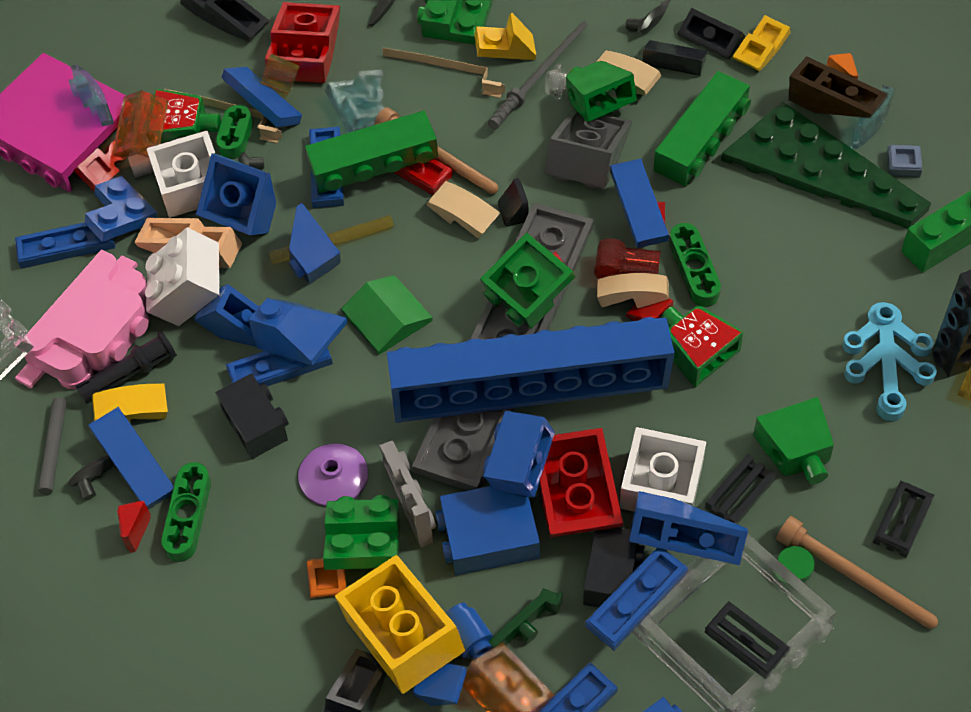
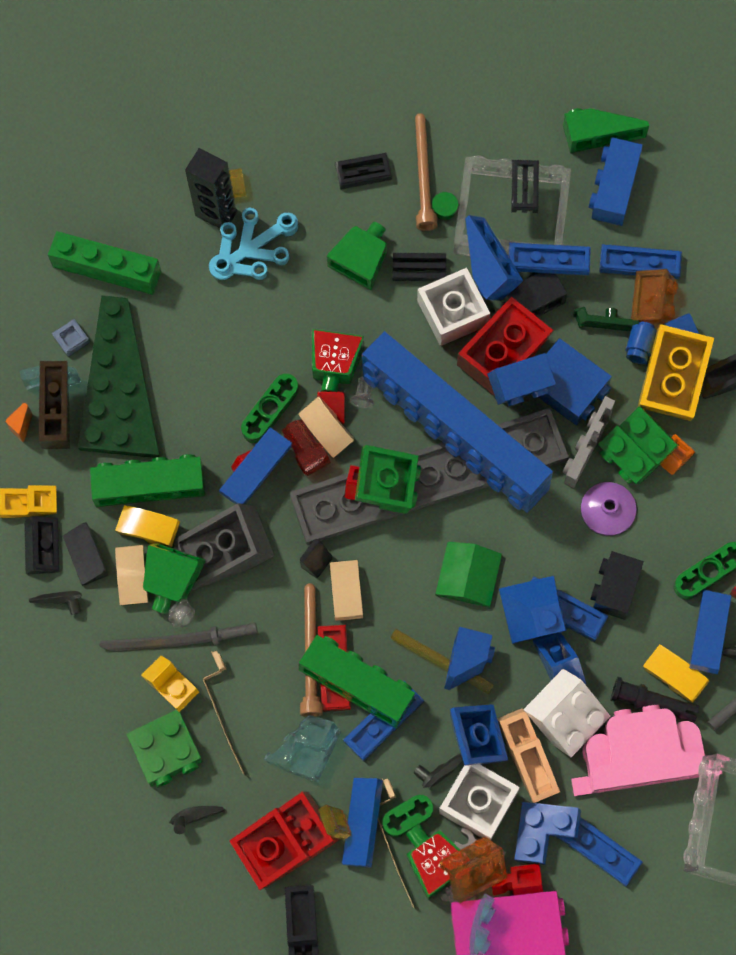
camera: 130 degrees left, 15 degrees up
(657, 107) = (147, 526): none -> yellow slope

